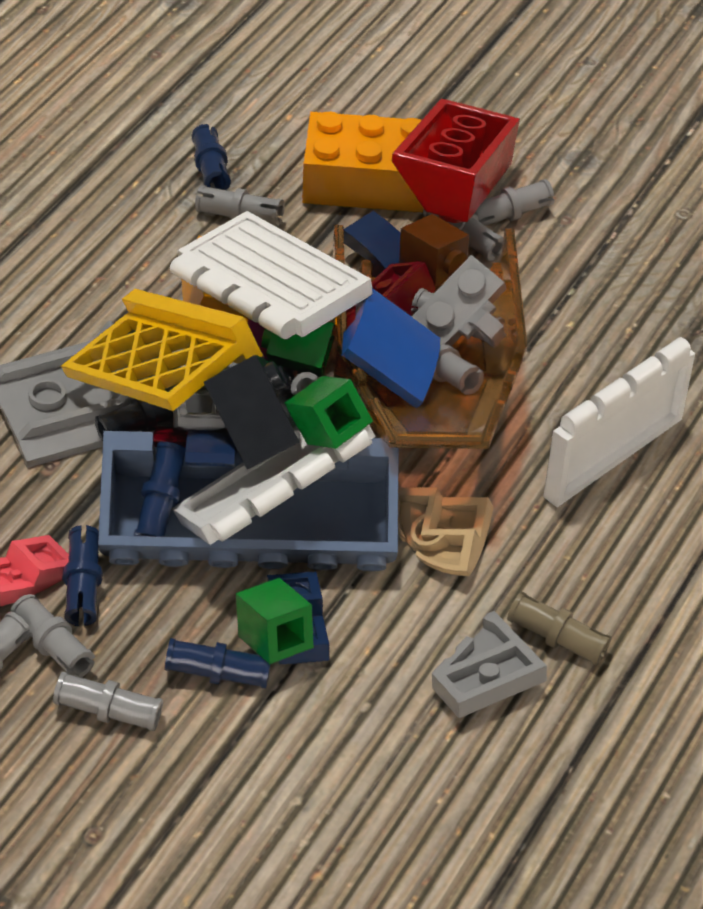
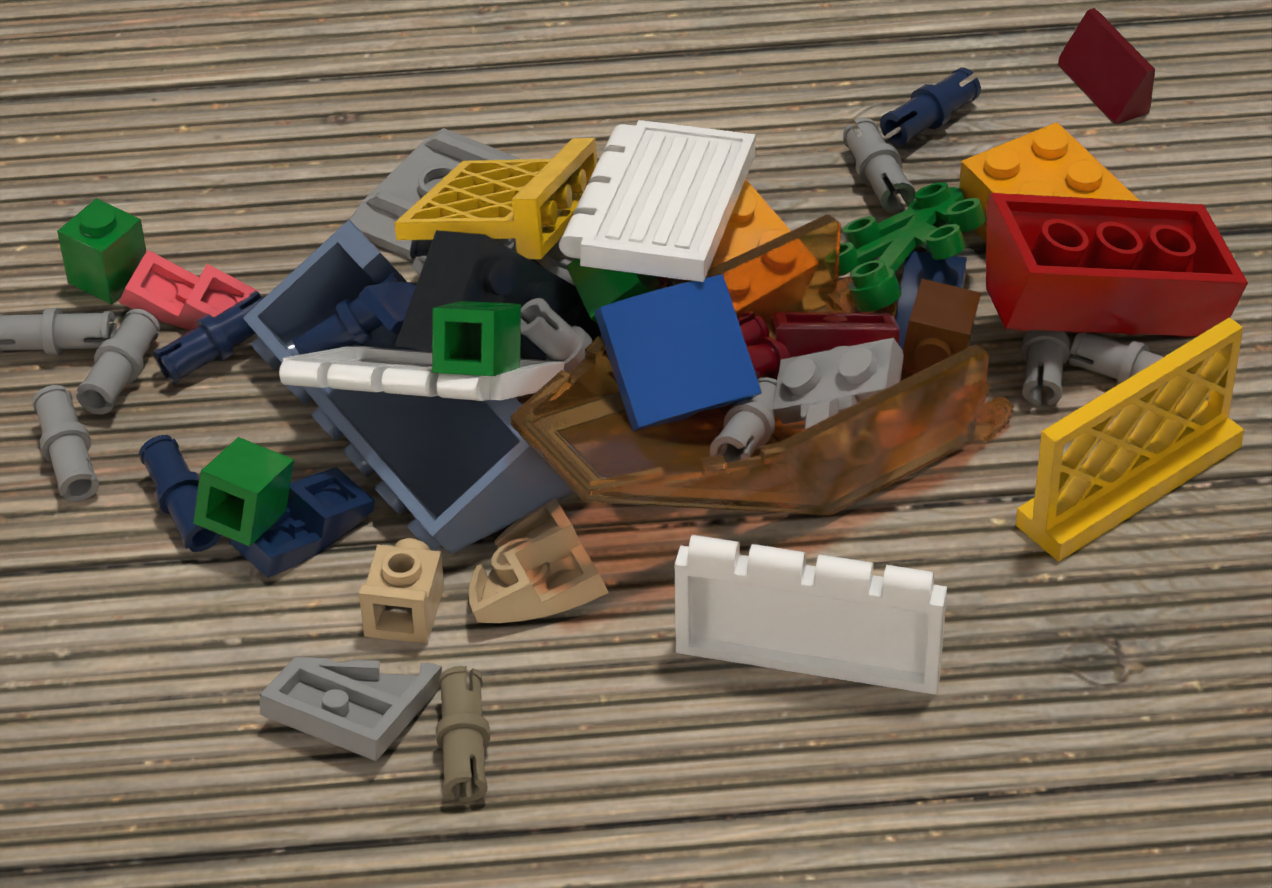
camera: 60 degrees right, 0 degrees up
(256, 76) = (1108, 69): none -> dark red slope
(307, 202) = (931, 221): none -> green plant
(414, 596) = (402, 577): none -> tan brick
(591, 235) = (1163, 452): none -> yellow fence

